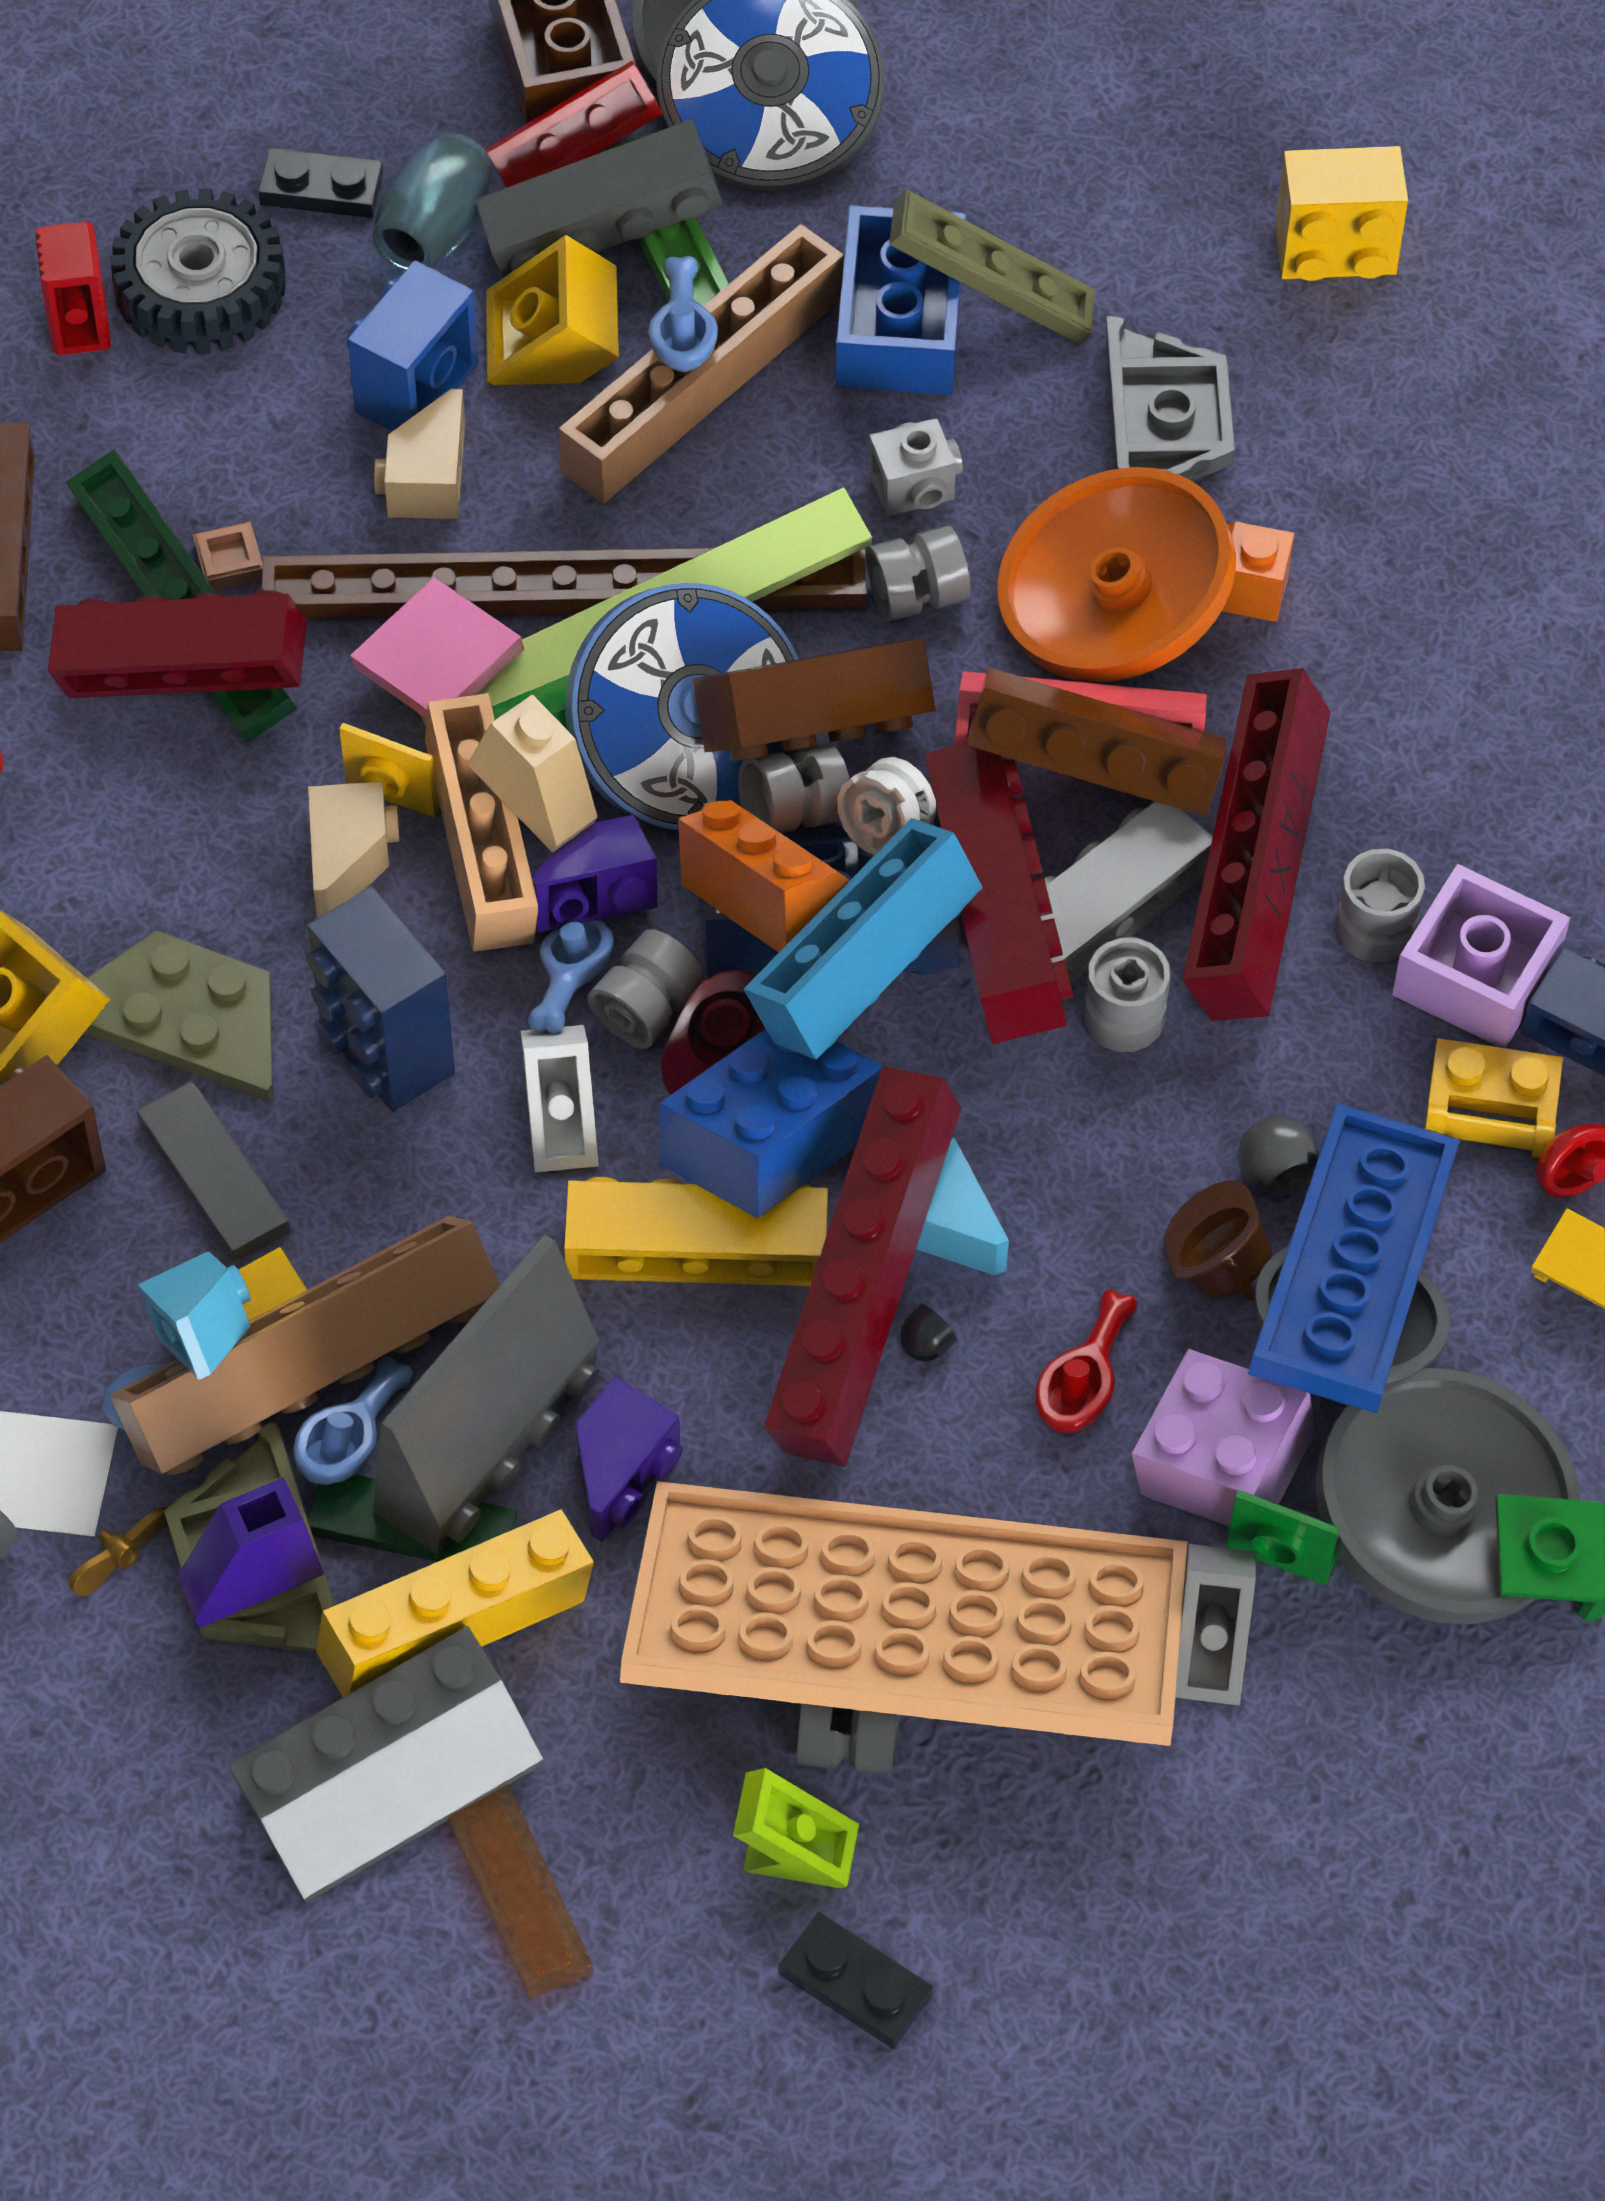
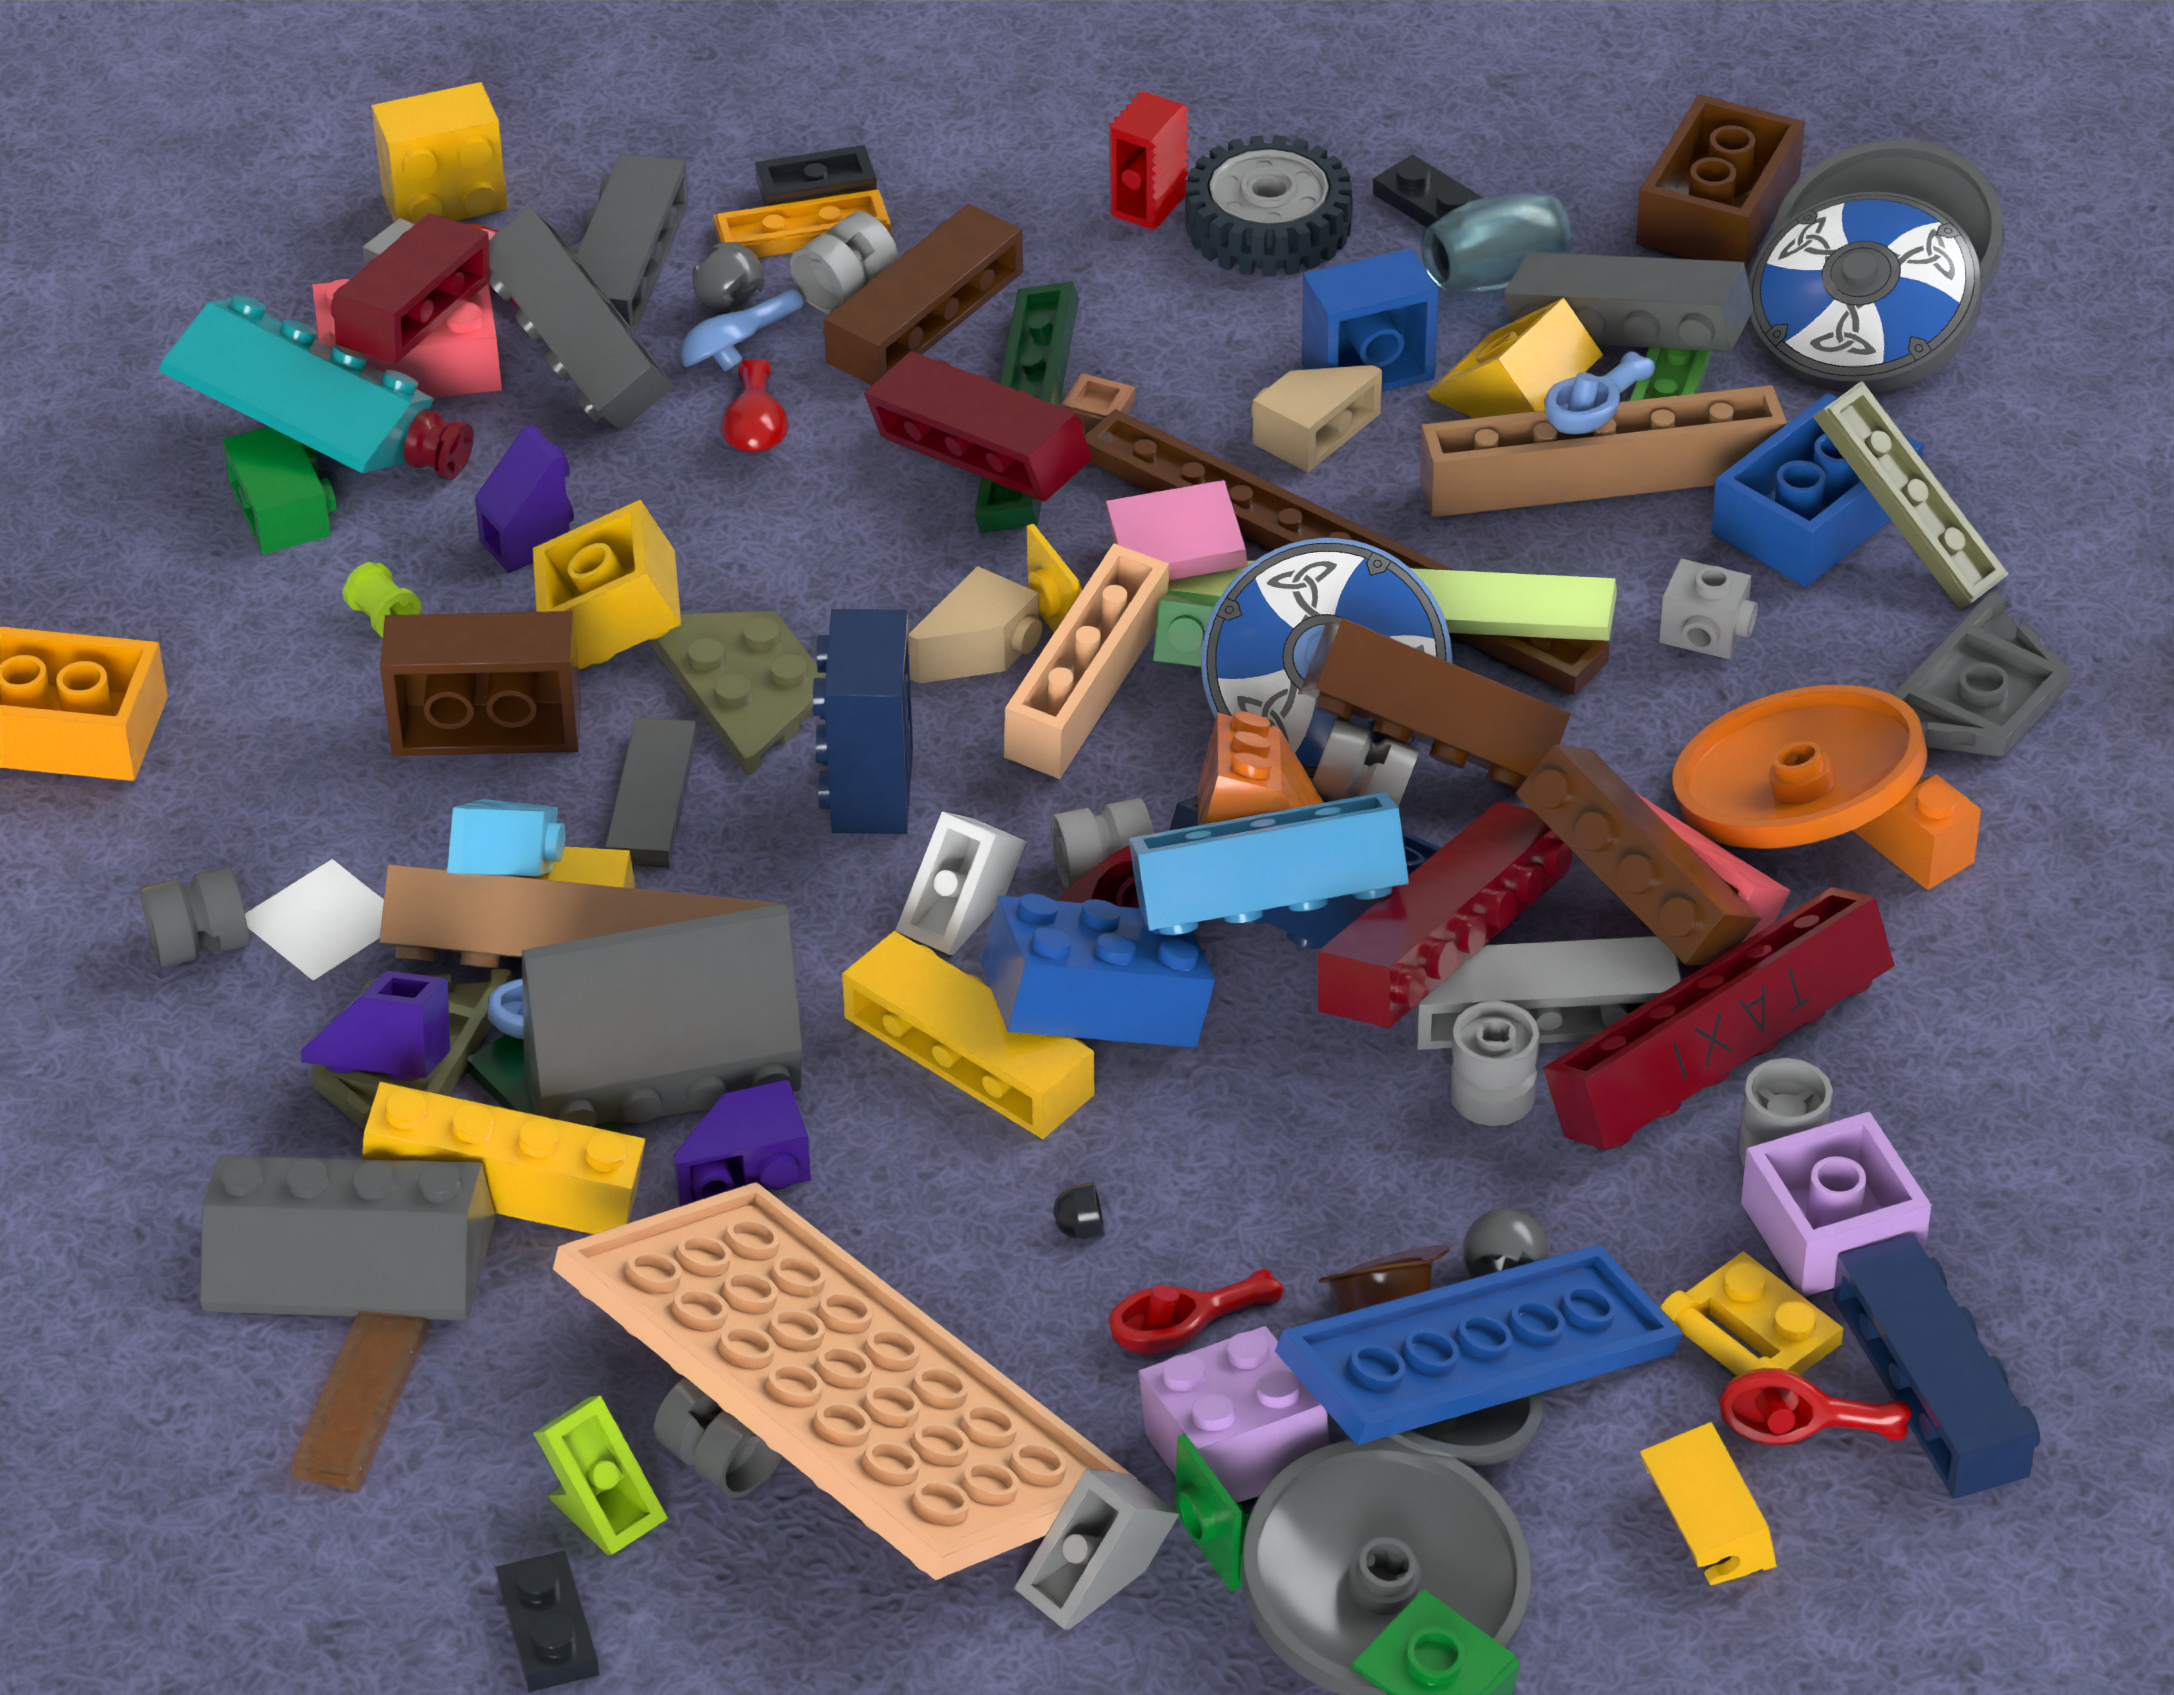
camera: 40 degrees right, 15 degrees down
(117, 1551) = (314, 997): pearl gold piece -> none
(536, 772) = (1143, 629): tan slope -> none
(570, 960) = (1055, 794): medium blue piece -> none
(576, 127) = (1687, 236): red plate -> none
(597, 876) = (1139, 745): dark purple slope -> none
(863, 1266) = (1057, 1112): dark red brick -> none
(882, 801) = (1425, 809): white wheel -> none
(938, 569) = (1653, 691): light grey wheel -> none
(961, 1221) = (1185, 1126): medium azure slope -> none

